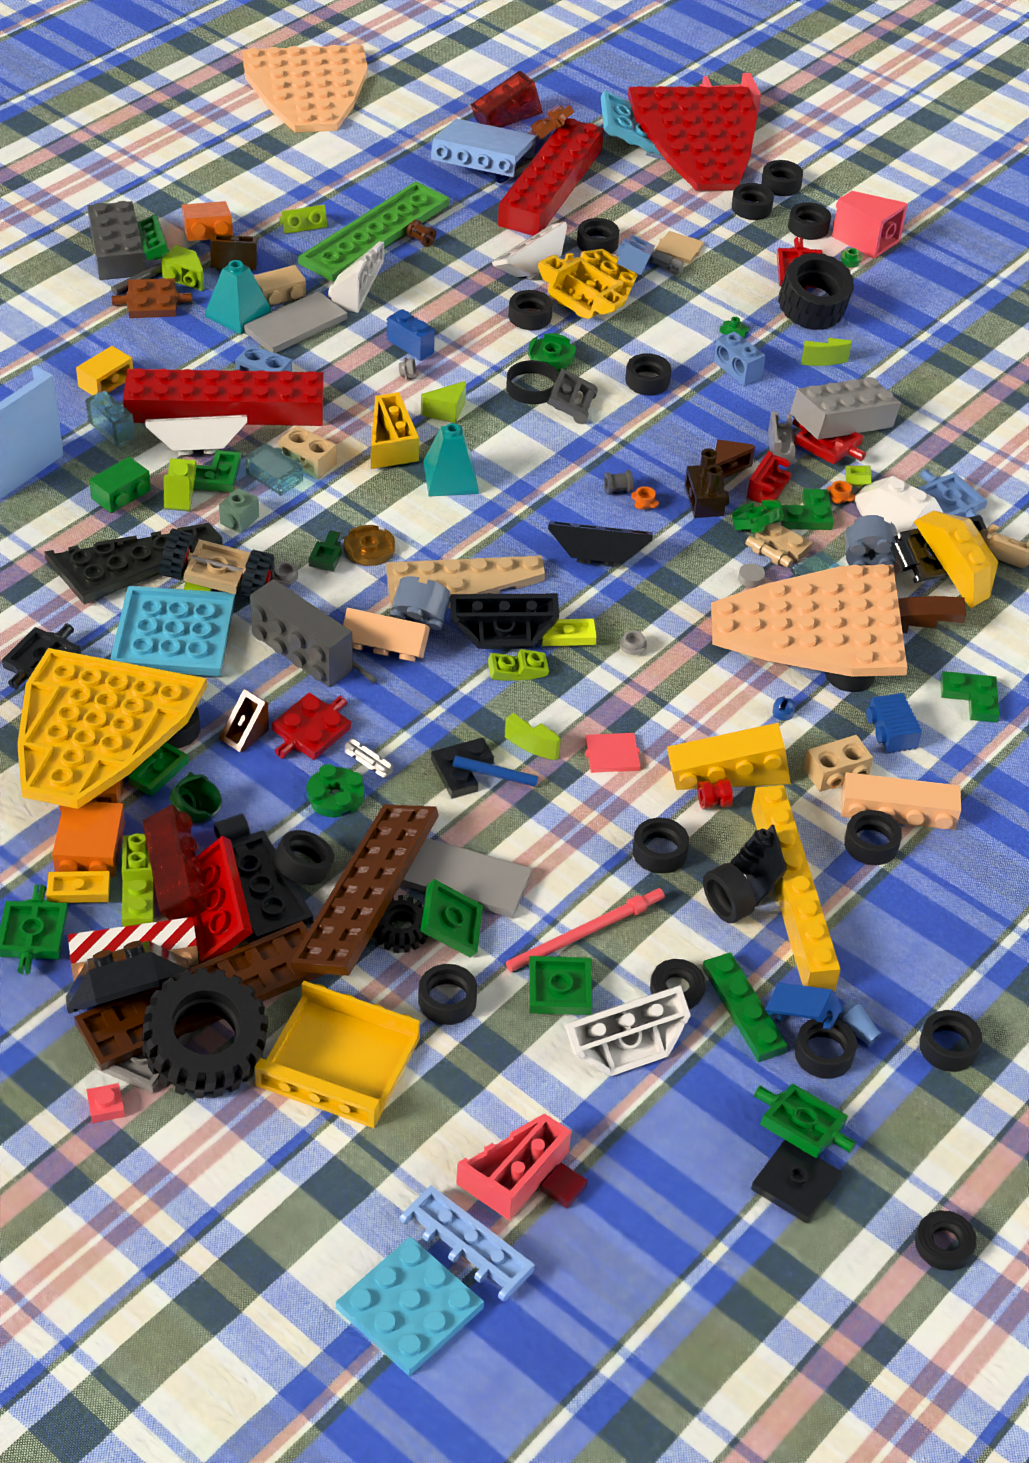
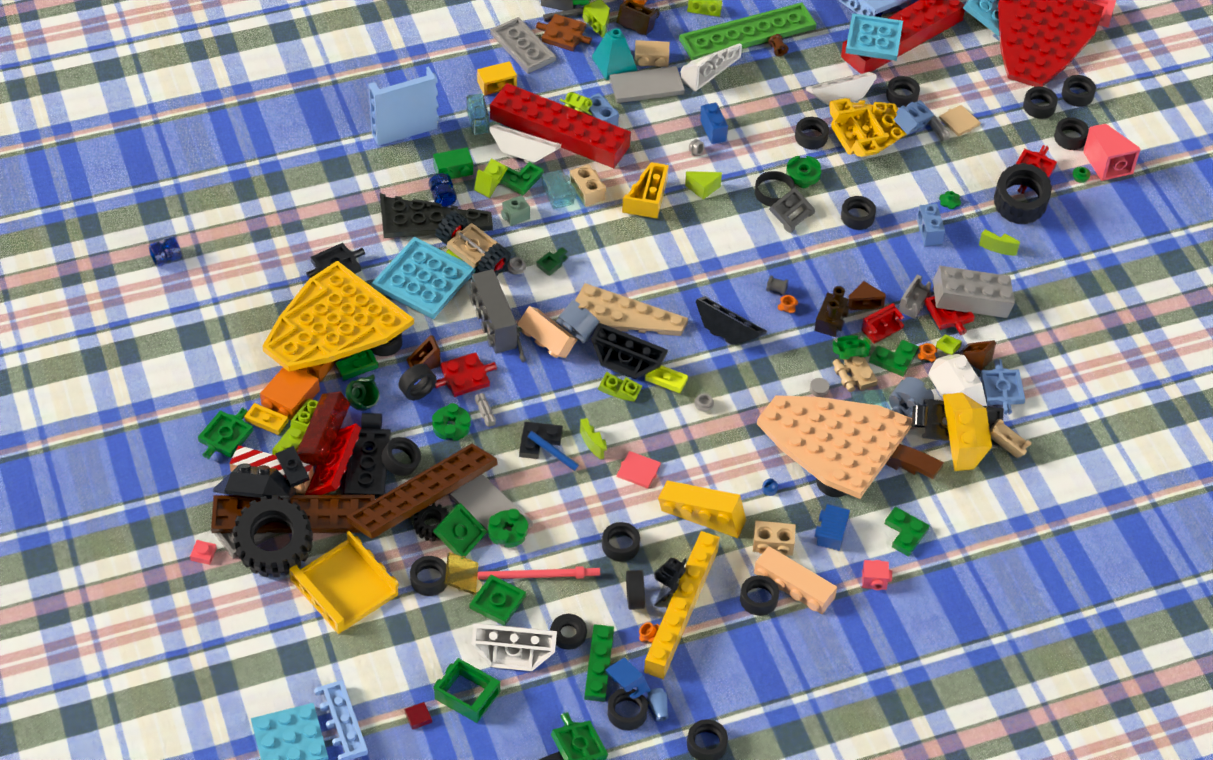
camera: 30 degrees right, 5 degrees up
(109, 327) = (523, 45): none -> light grey tile
(126, 518) = (442, 189): none -> clear blue wheel
(168, 929) = (292, 466): none -> black plate
(224, 362) = (577, 102): none -> lime hinge
(261, 755) = (411, 376): none -> black tyre
(369, 545) = (584, 266): pearl gold tile -> none
(450, 464) = (673, 231): teal slope -> none
(489, 971) = (461, 573): none -> clear yellow piece
(510, 874) = (504, 537): none -> green plate
(516, 1167) = (395, 691): coral wedge -> none
(535, 184) = (874, 37): none -> medium azure plate
(608, 1096) = (482, 703): none -> green window
(715, 794) = (679, 524): red wheel -> none
(772, 936) = (648, 632): none -> orange plate
(901, 467) = (979, 353): none -> reddish brown slope
(984, 756) = (876, 574): none -> coral brick

